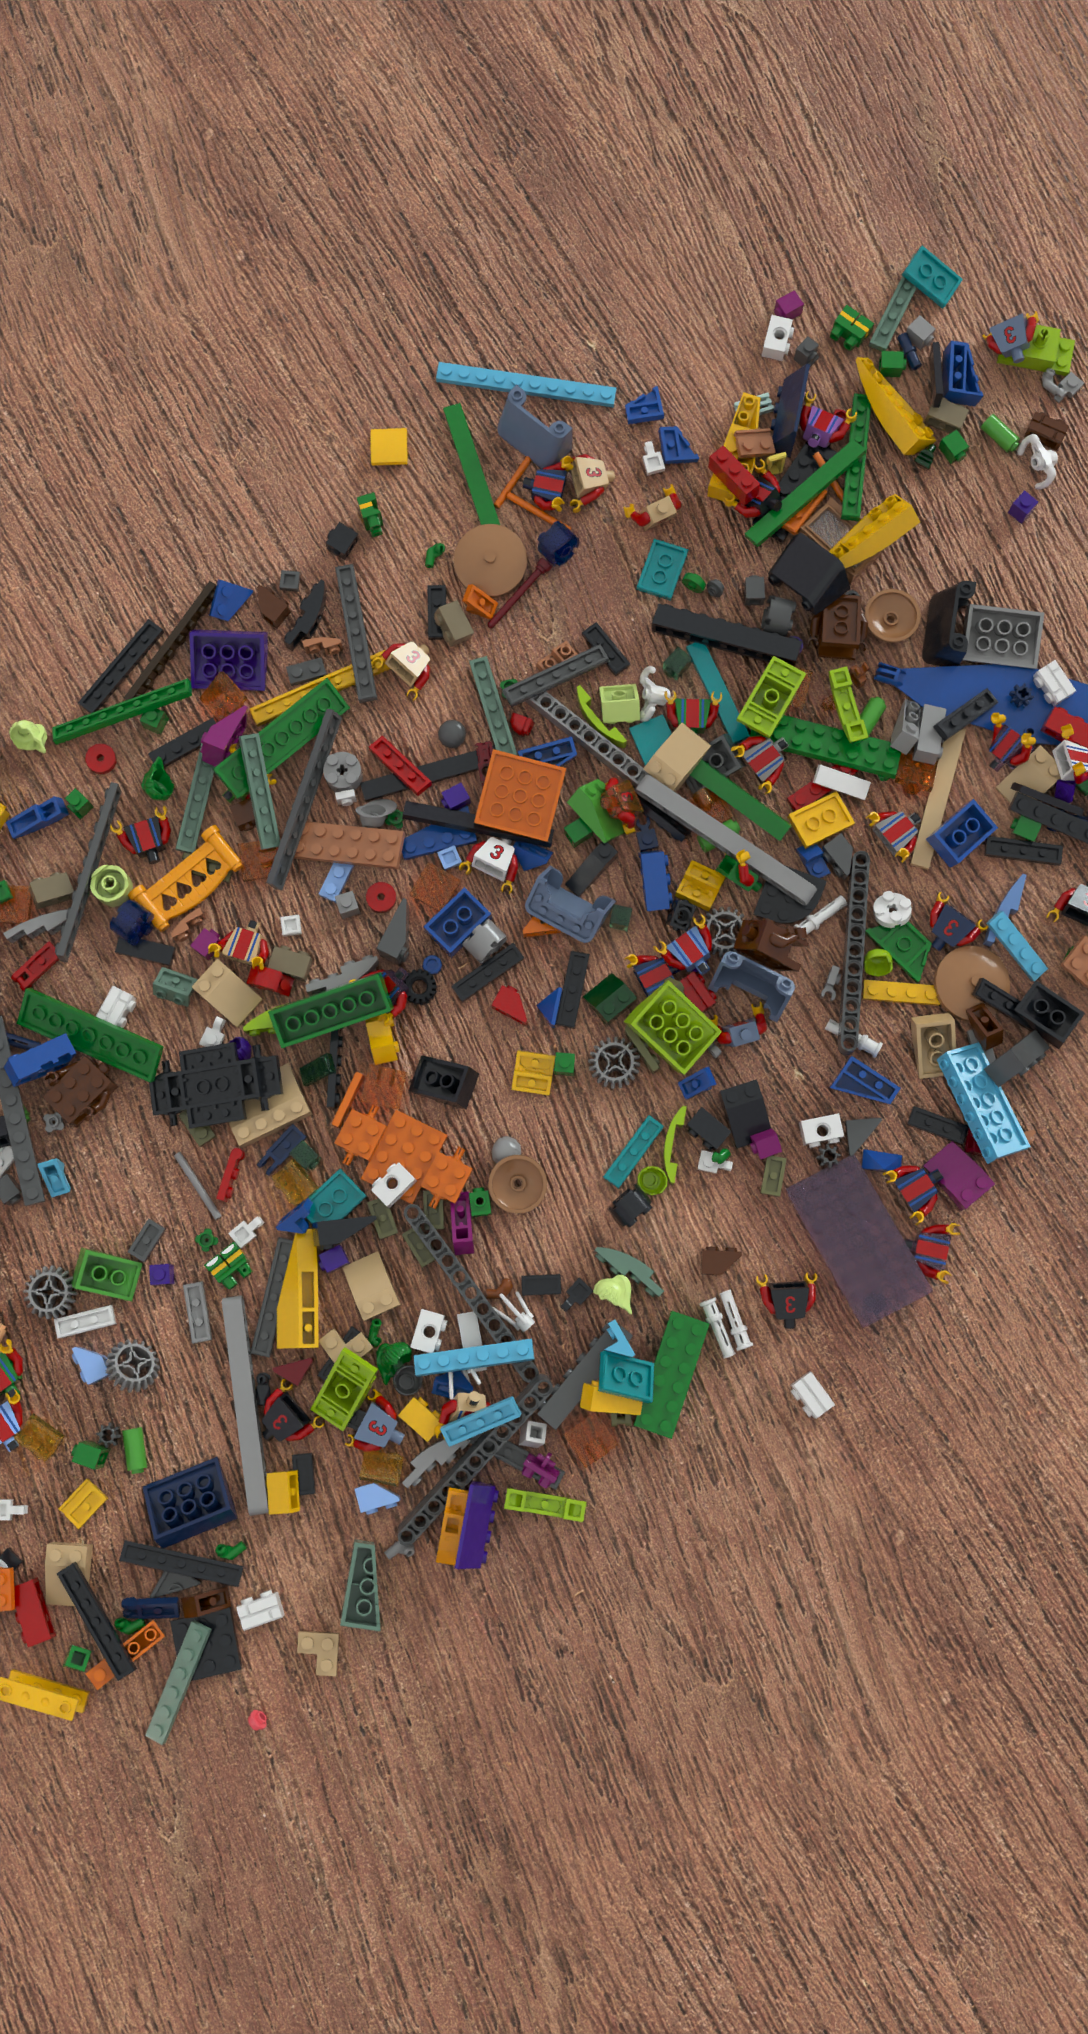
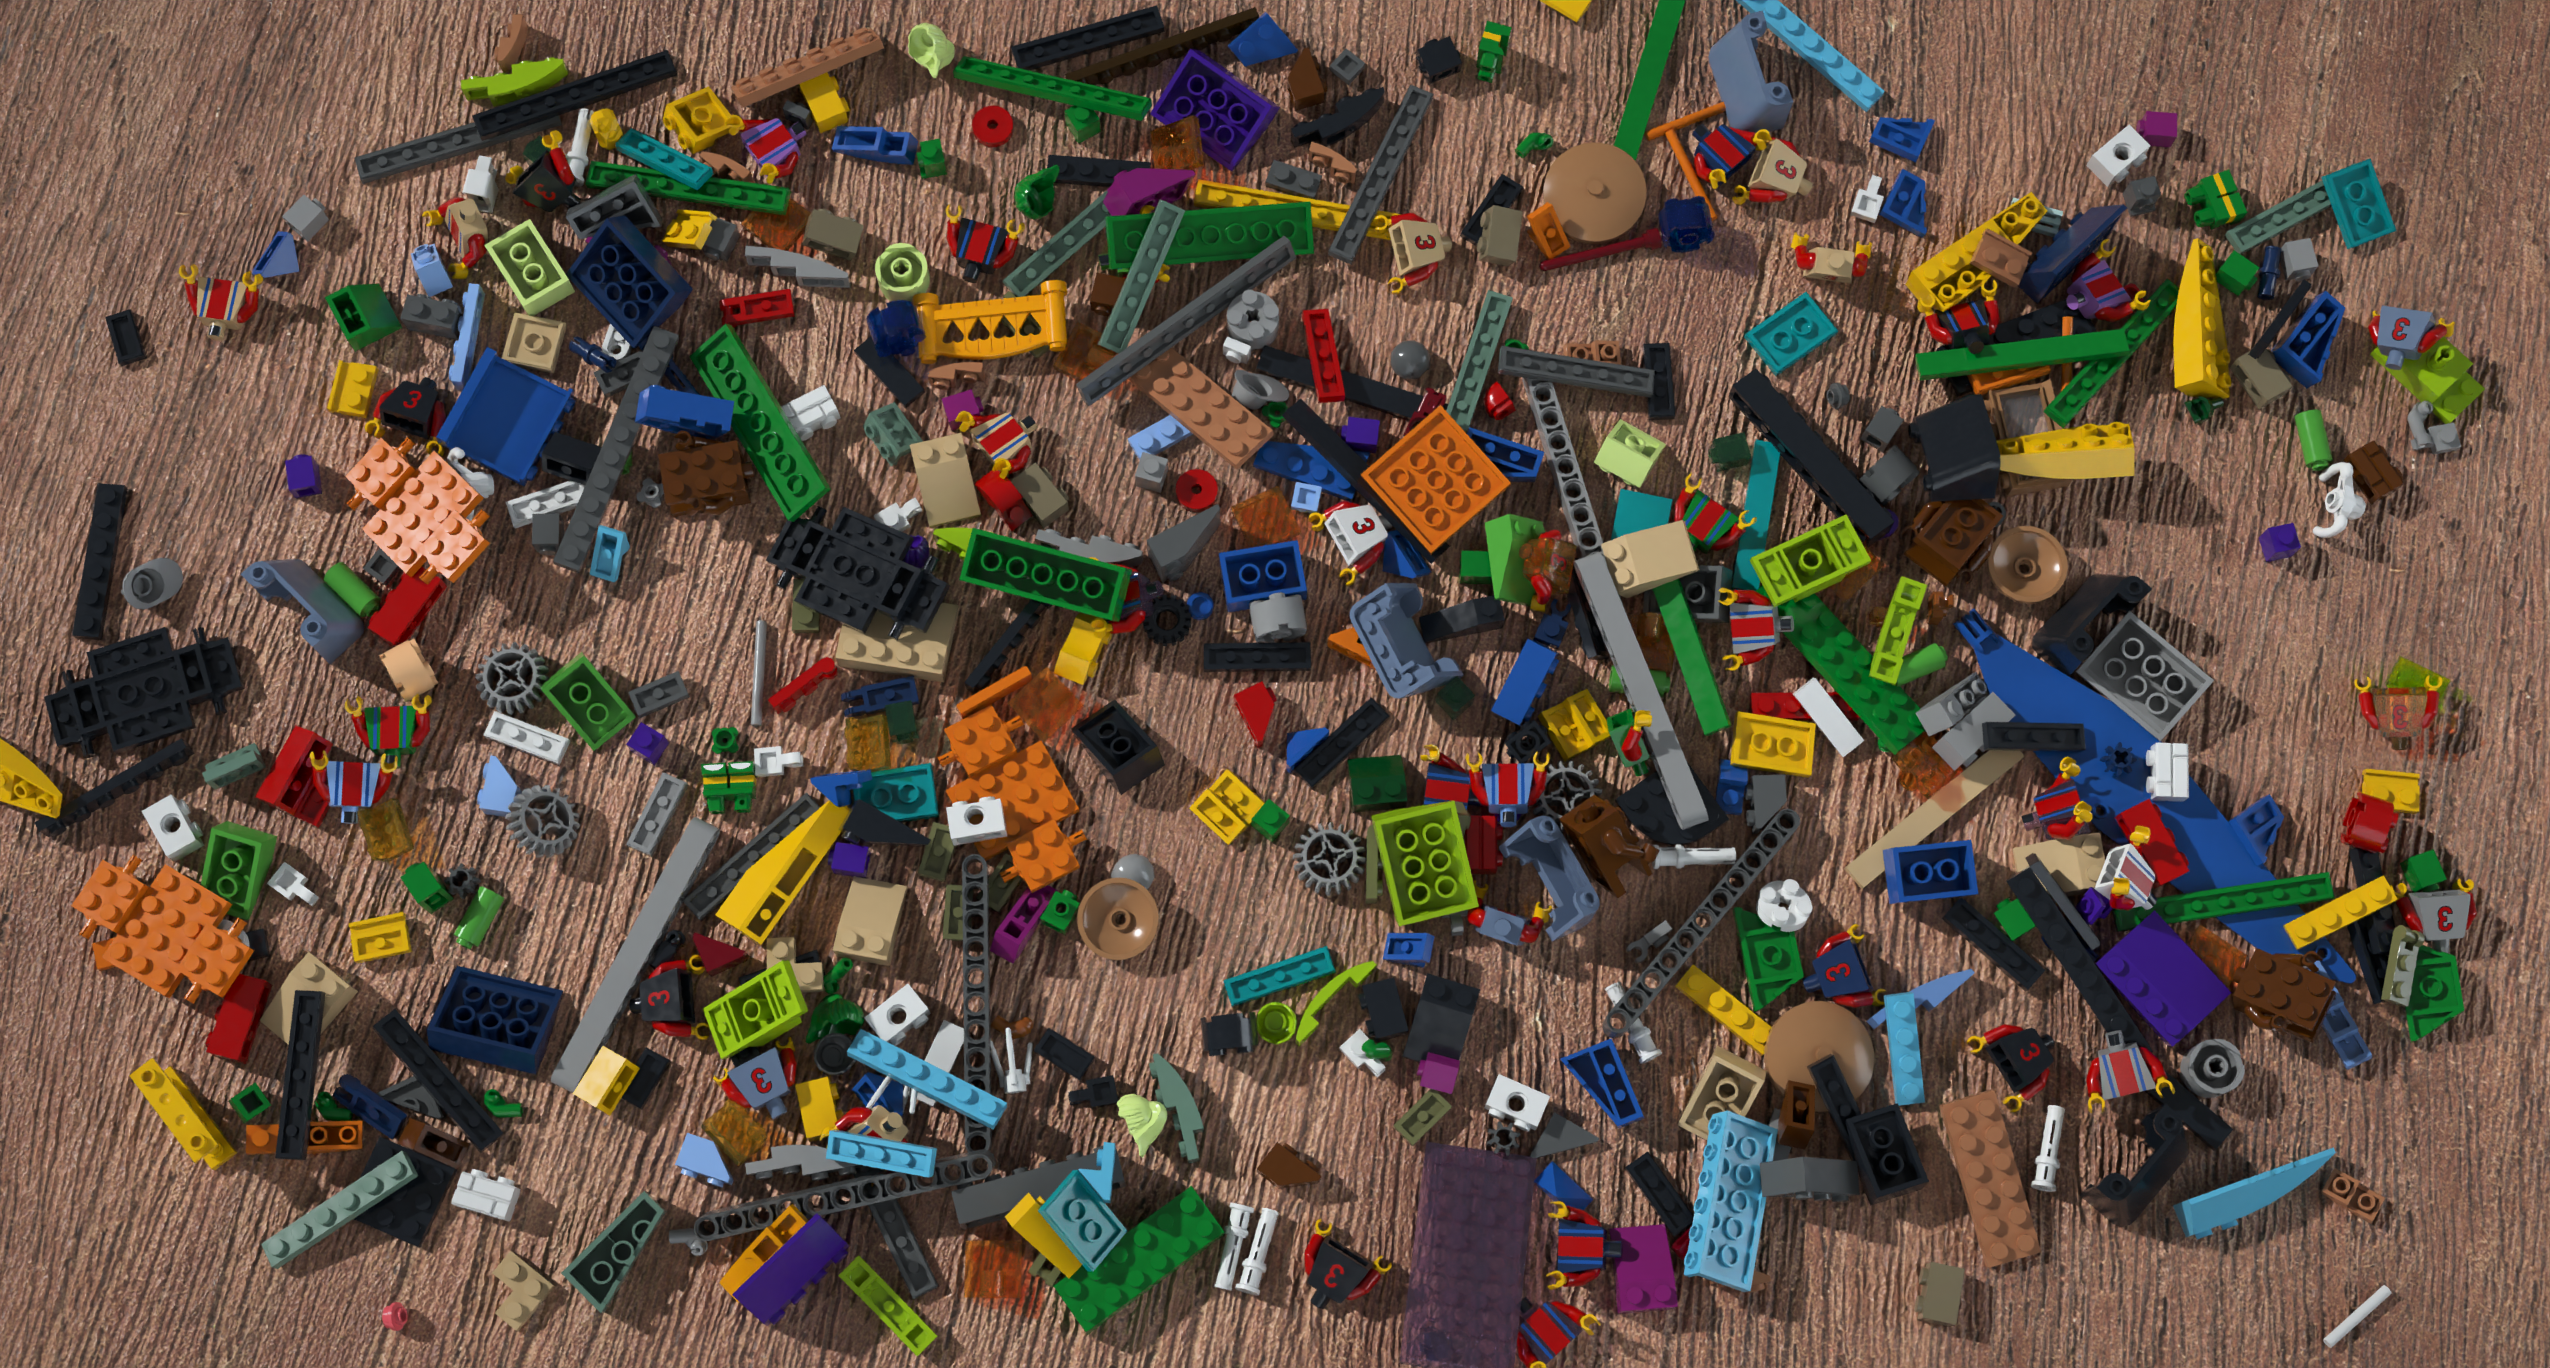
camera: 30 degrees right, 5 degrees down
(90, 864) = (897, 232): dark grey plate -> none
(291, 925) = (1071, 453): white tile -> none
(317, 1069) = (984, 633): clear green tile -> none
(532, 1434) = (931, 1215): white brick -> none
(542, 1466) = (916, 1258): magenta hips -> none
(613, 735) = (1594, 484): lime slope -> none
(652, 694) = (1675, 467): white piece -> none
(694, 582) = (1816, 372): green wheel -> none
(734, 475) = (1947, 278): red brick -> none
(775, 463) = (2010, 298): light yellow slope -> none
(878, 962) = (1722, 955): lime hair -> none
(896, 831) = (1853, 817): torso -> none
(953, 447) = (2244, 418): green brick -> none

